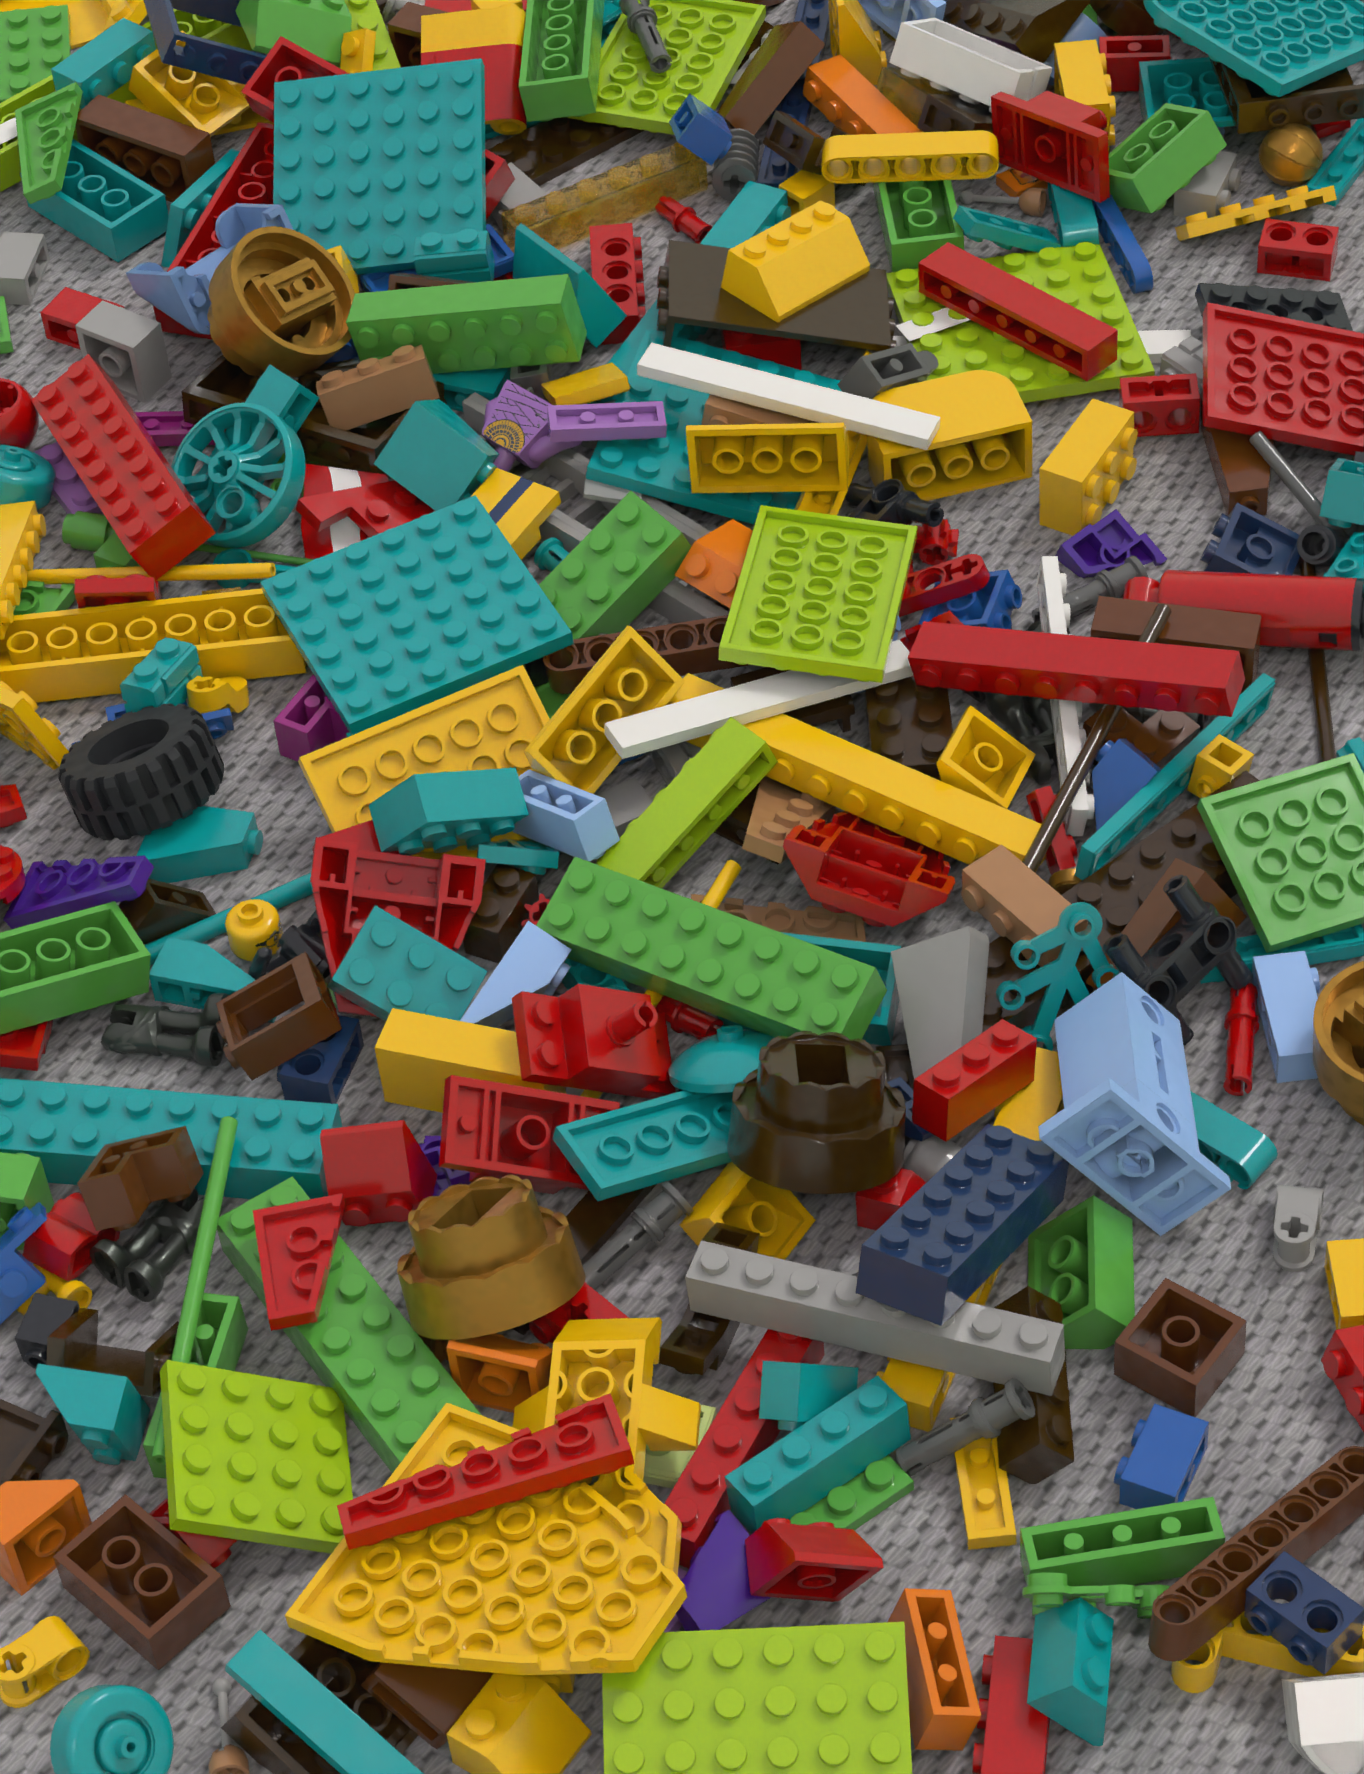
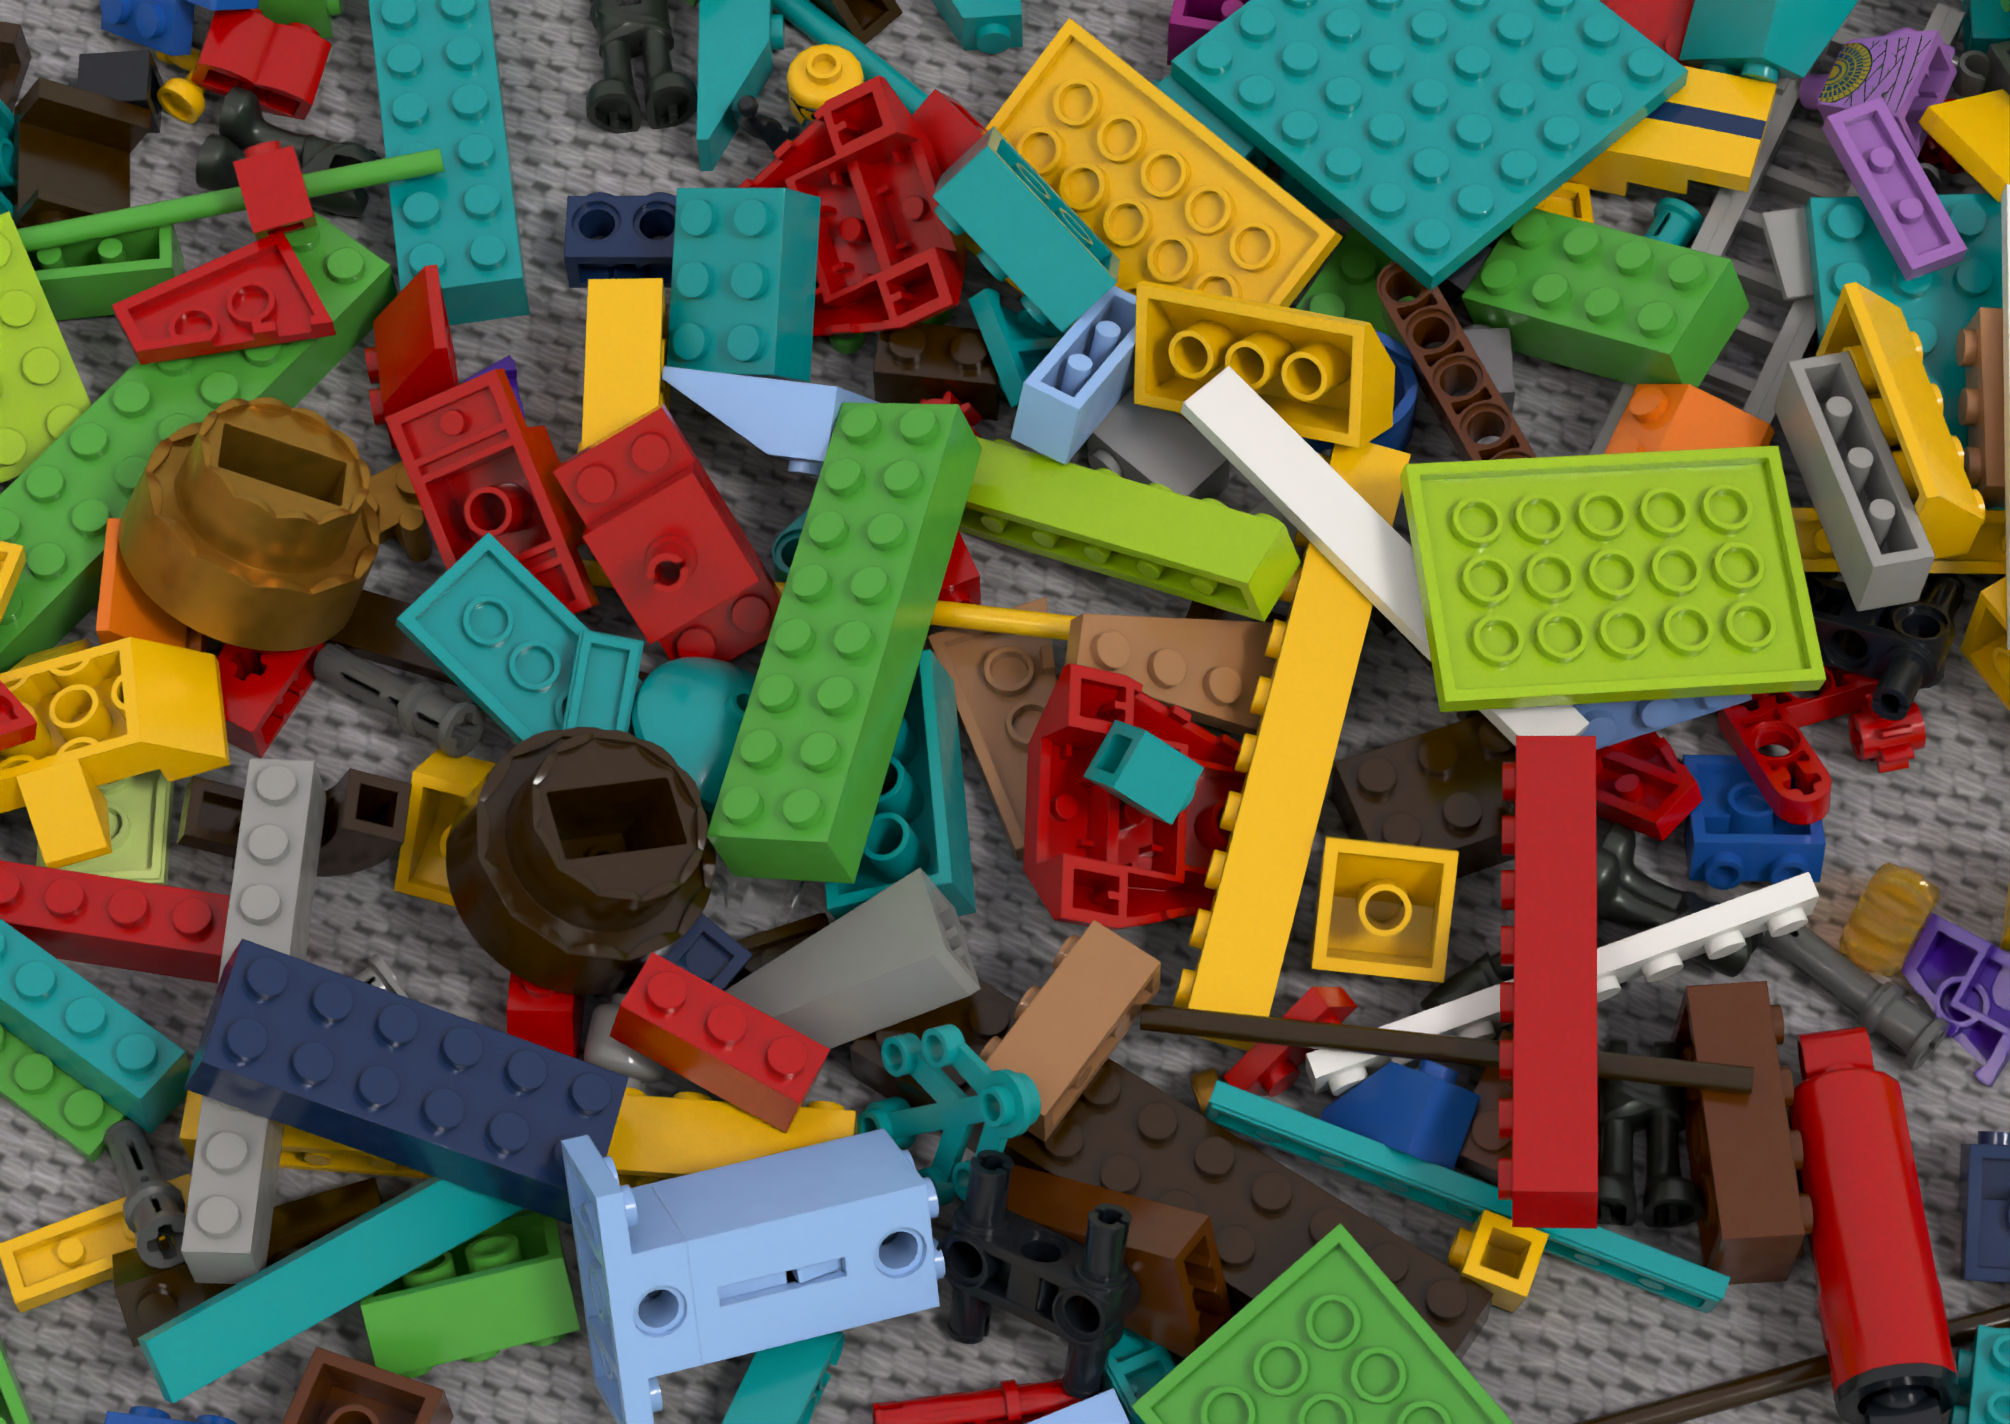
camera: 70 degrees right, 15 degrees up
(137, 1172) = (327, 80): reddish brown brick -> none
(223, 1204) = (274, 189): none -> red brick
(266, 999) = (644, 117): reddish brown window -> none
(689, 1108) = (603, 681): none -> teal tile
(798, 478) = (1853, 481): none -> light grey brick
(802, 1390) = (154, 971): teal brick -> none
(862, 834) = (1144, 772): none -> teal brick
(1070, 555) = (1889, 919): none -> clear yellow gear
(1082, 1331) = (315, 1283): none -> teal tile

